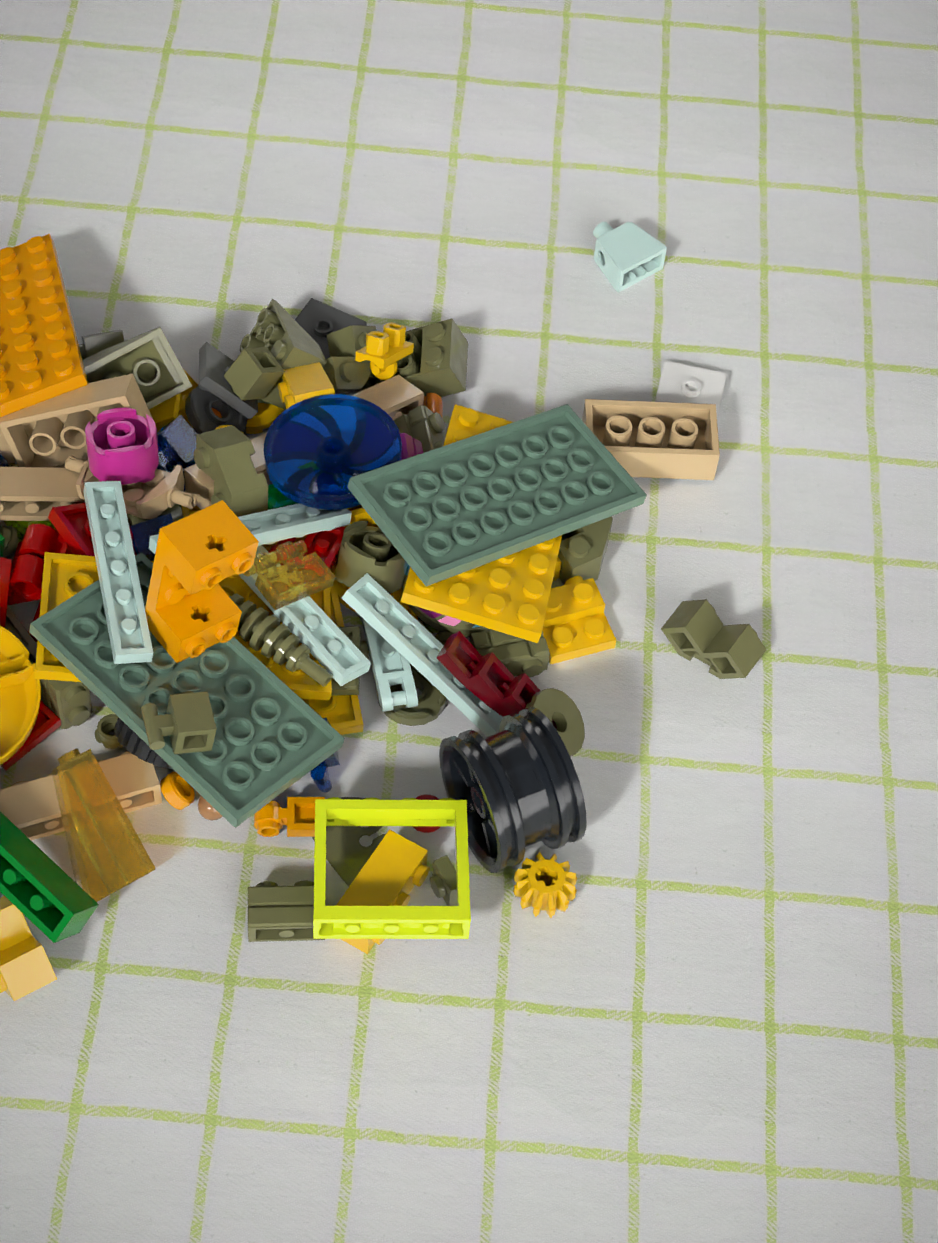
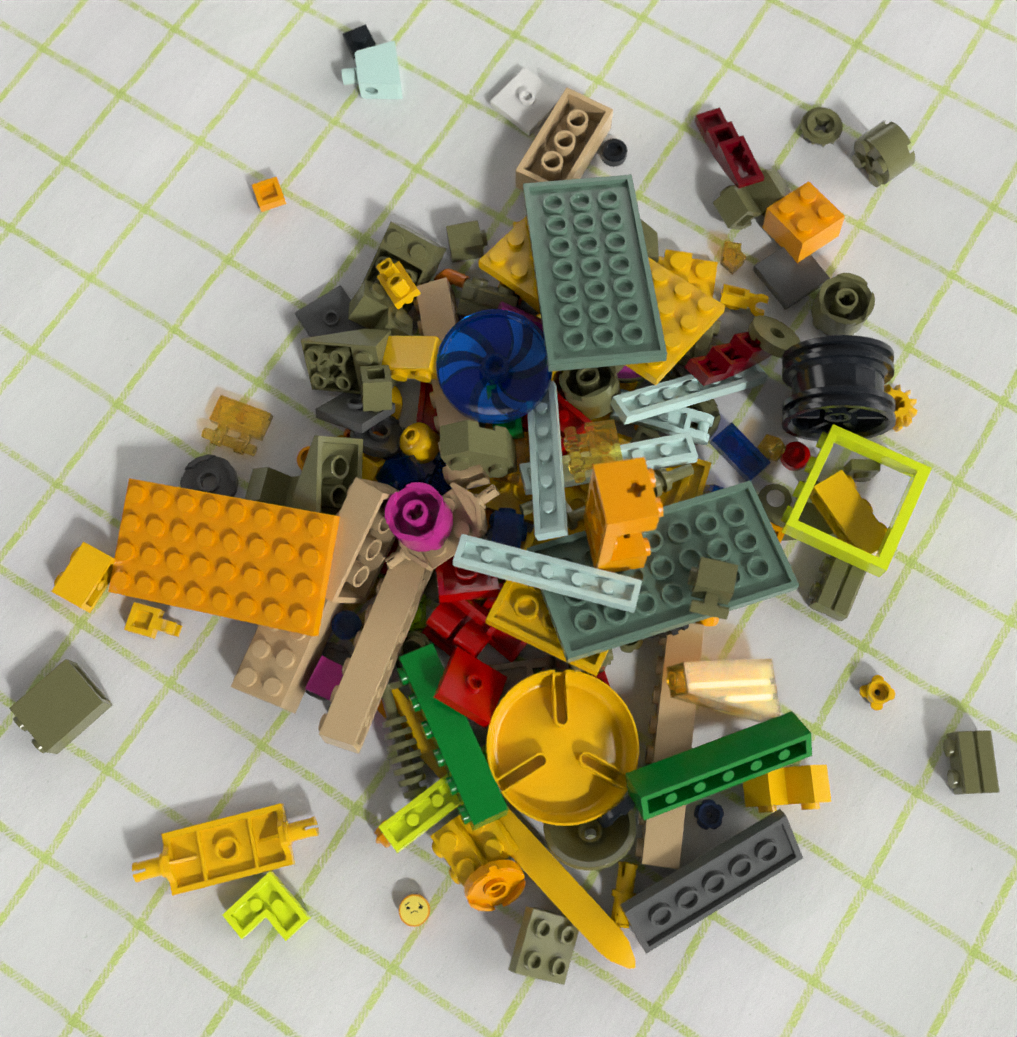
camera: 55 degrees left, 20 degrees up
(101, 319) = (207, 466): none -> dark grey tile
(138, 1142) = (971, 762): none -> olive brick
(171, 301) = (240, 418): none -> clear yellow plate
(177, 999) = (877, 701): none -> yellow plate
(394, 752) = (740, 452): none -> clear blue plate
(419, 771) = (772, 447): none -> clear yellow piece
(428, 226) = (269, 194): none -> light orange plate
(484, 396) = (466, 241): none -> olive brick
(584, 674) = (737, 298): none -> yellow plate
(633, 652) = (732, 257): none -> clear yellow piece
(639, 777) = (842, 305): none -> olive brick
(653, 721) = (788, 279): none -> dark grey tile
(657, 226) = (358, 39): none -> black plate
(685, 495) = (613, 152): none -> black tile
(718, 697) = (803, 221): none -> light orange brick
(758, 588) = (729, 148): none -> dark red slope
(853, 666) = (822, 117): none -> olive gear
(862, 742) = (883, 153): none -> olive brick

